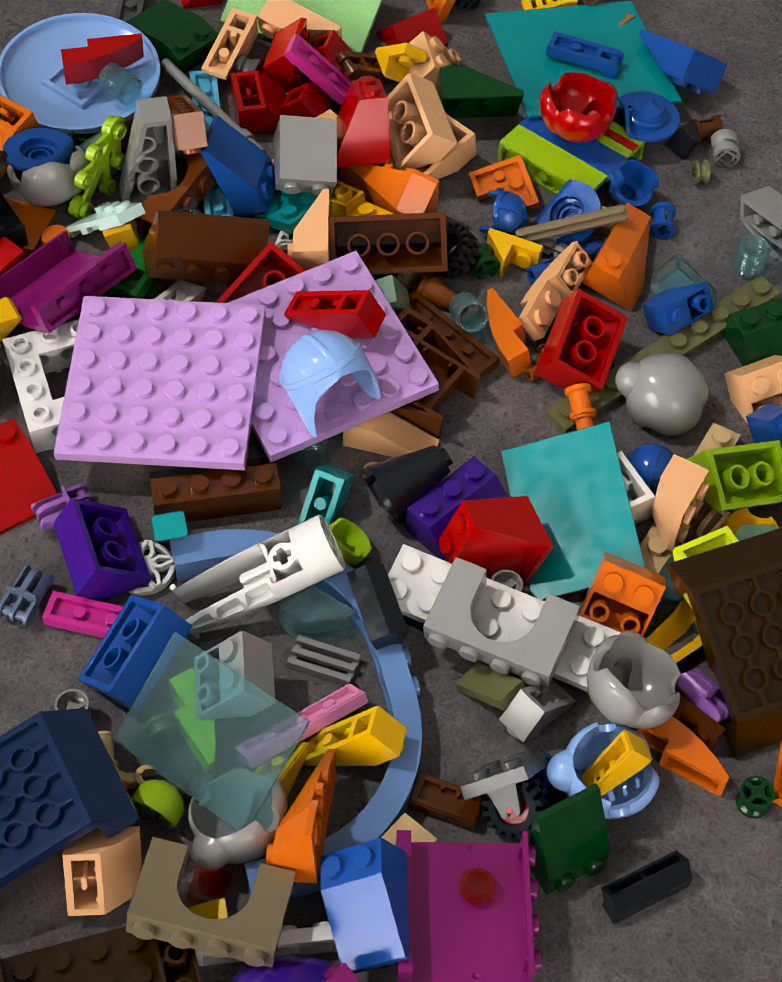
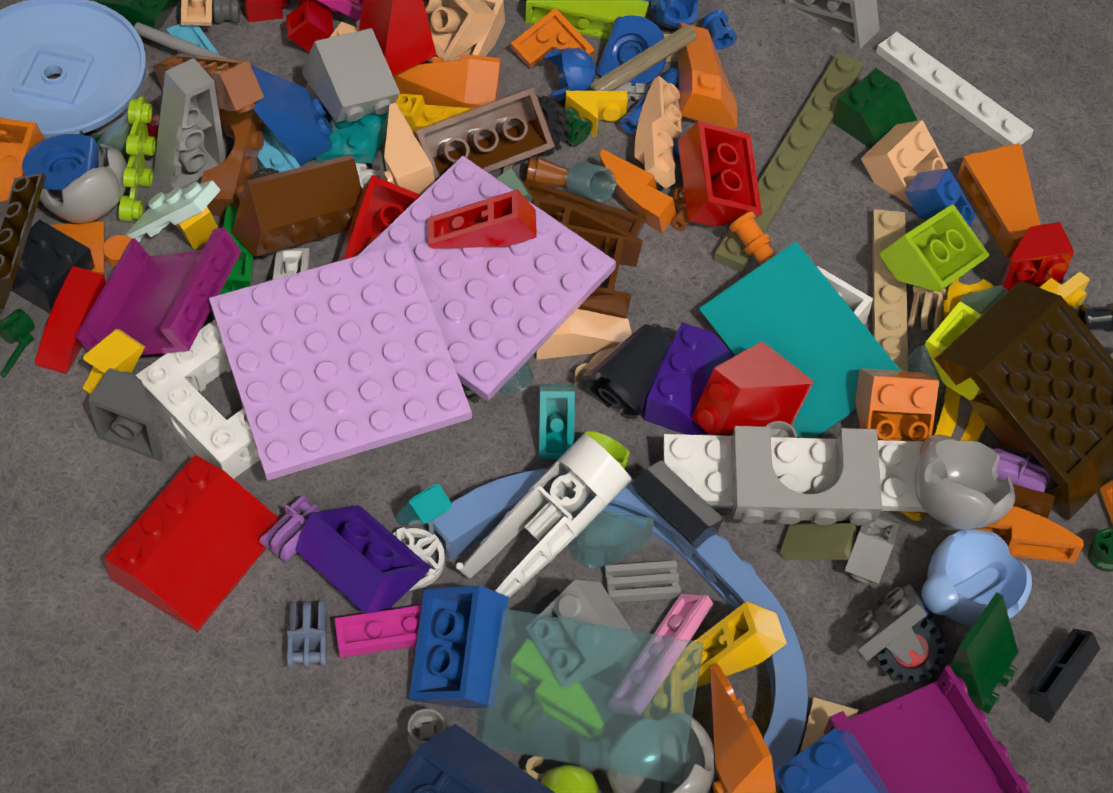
camera: 25 degrees left, 0 degrees up
(87, 62) = (72, 42): red slope -> none
(120, 84) = (110, 63): clear light blue piece -> none
(217, 492) = (439, 455): reddish brown slope -> none
(256, 101) = (258, 38): red slope -> none
(316, 364) = (506, 287): light blue piece -> none
(445, 801) = (839, 671): reddish brown plate -> none
(477, 886) = (927, 738): clear red plate -> none
(618, 762) = (999, 565): yellow slope -> none
(650, 463) = (851, 267): blue cap -> none
(663, 392) = (819, 196): light grey piece -> none
(677, 274) = (774, 86): clear light blue slope -> none
(677, 308) = (783, 110): blue slope -> none
(679, 499) = (898, 294): light nougat slope -> none
(751, 256) = (822, 38): clear light blue piece -> none

